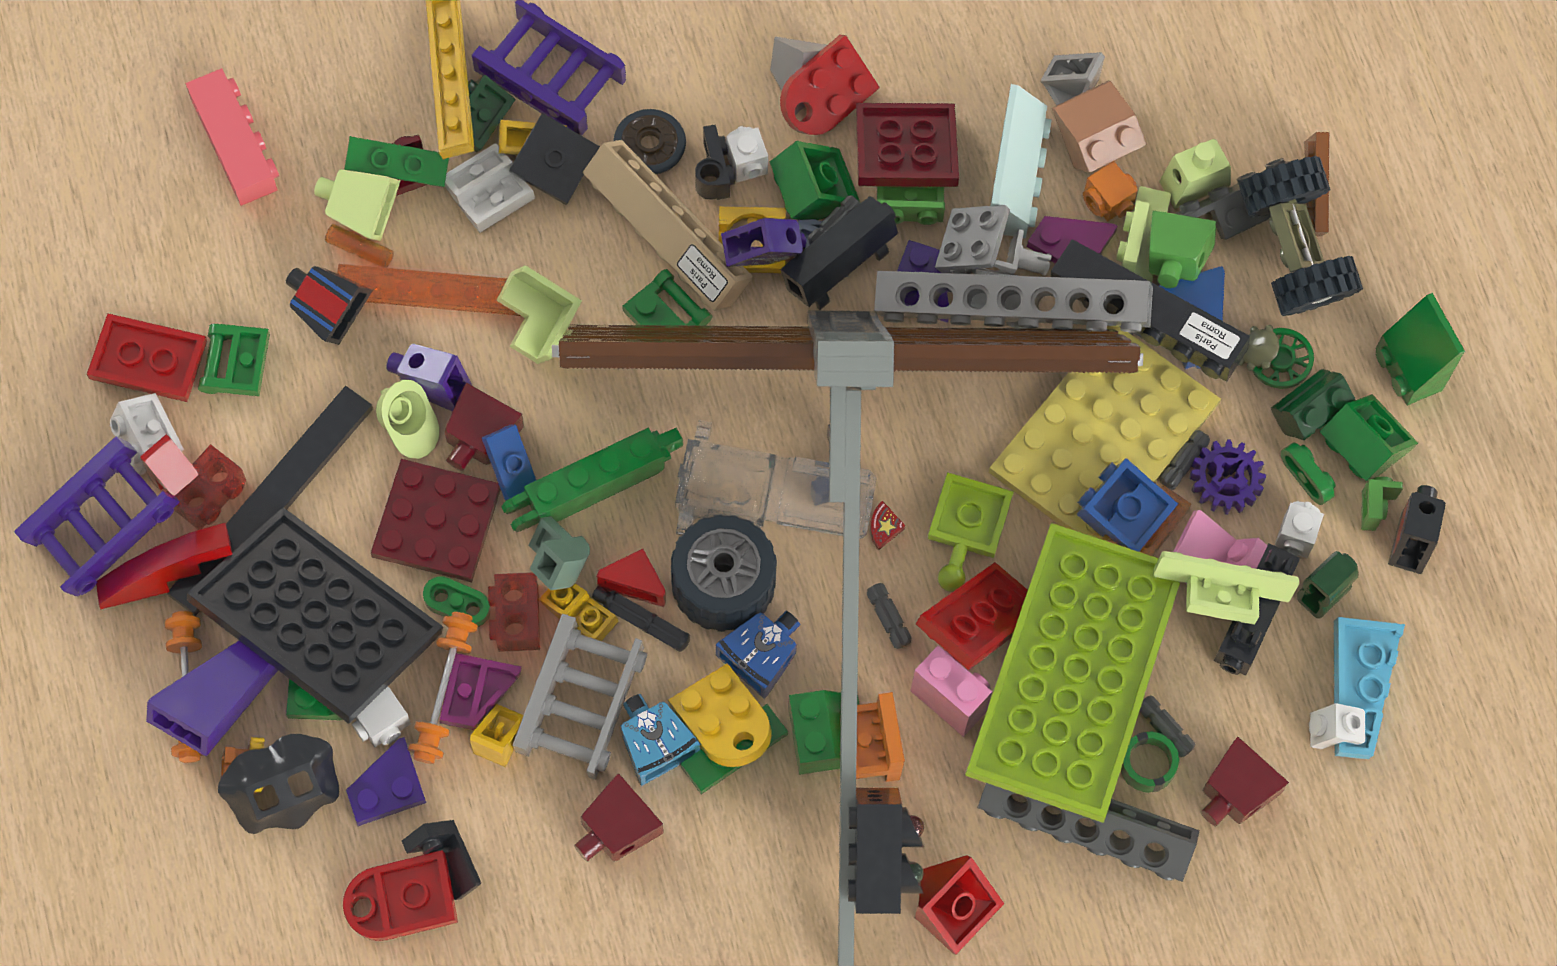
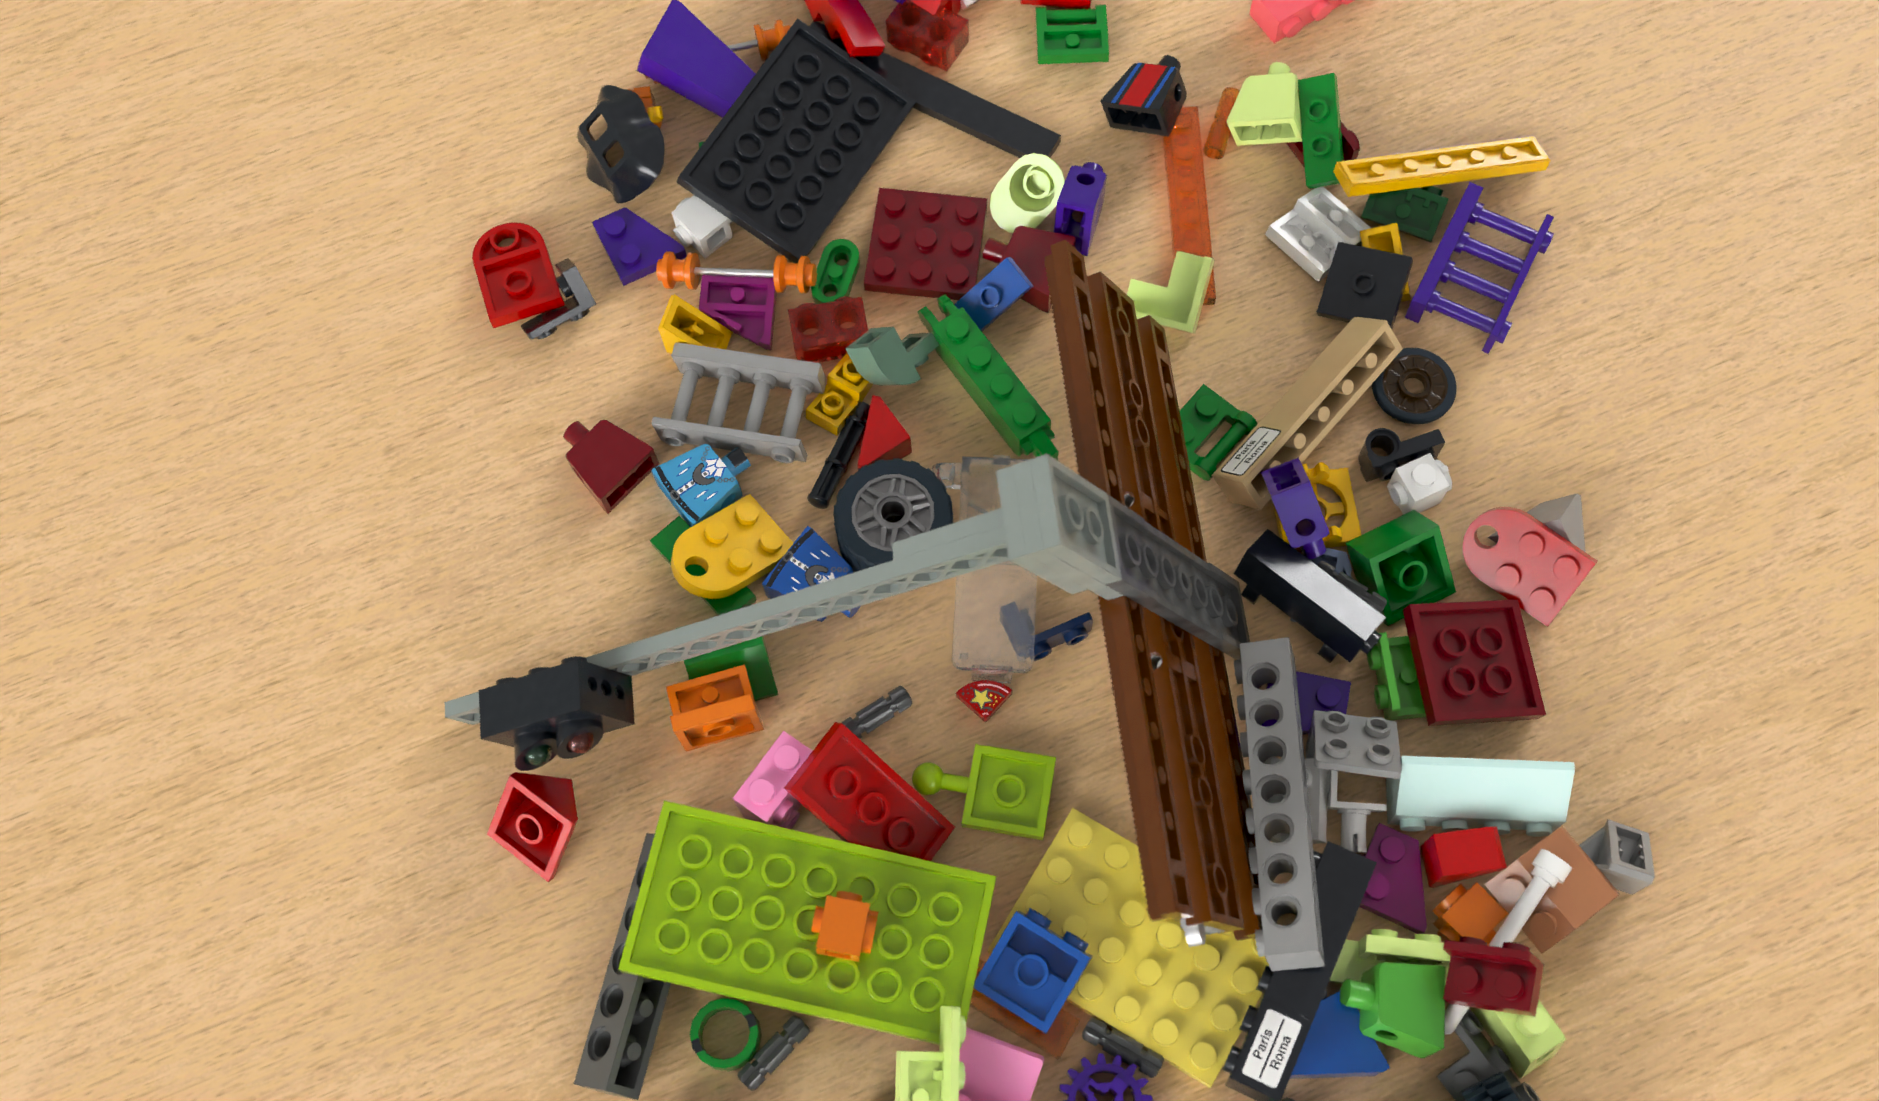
camera: 90 degrees right, 0 degrees up
(1066, 184) = (1462, 855): none -> red slope
(1088, 634) = (844, 926): none -> orange brick
(1094, 122) = (1547, 873): none -> white piece
(1170, 175) = (1493, 976): none -> dark red bracket

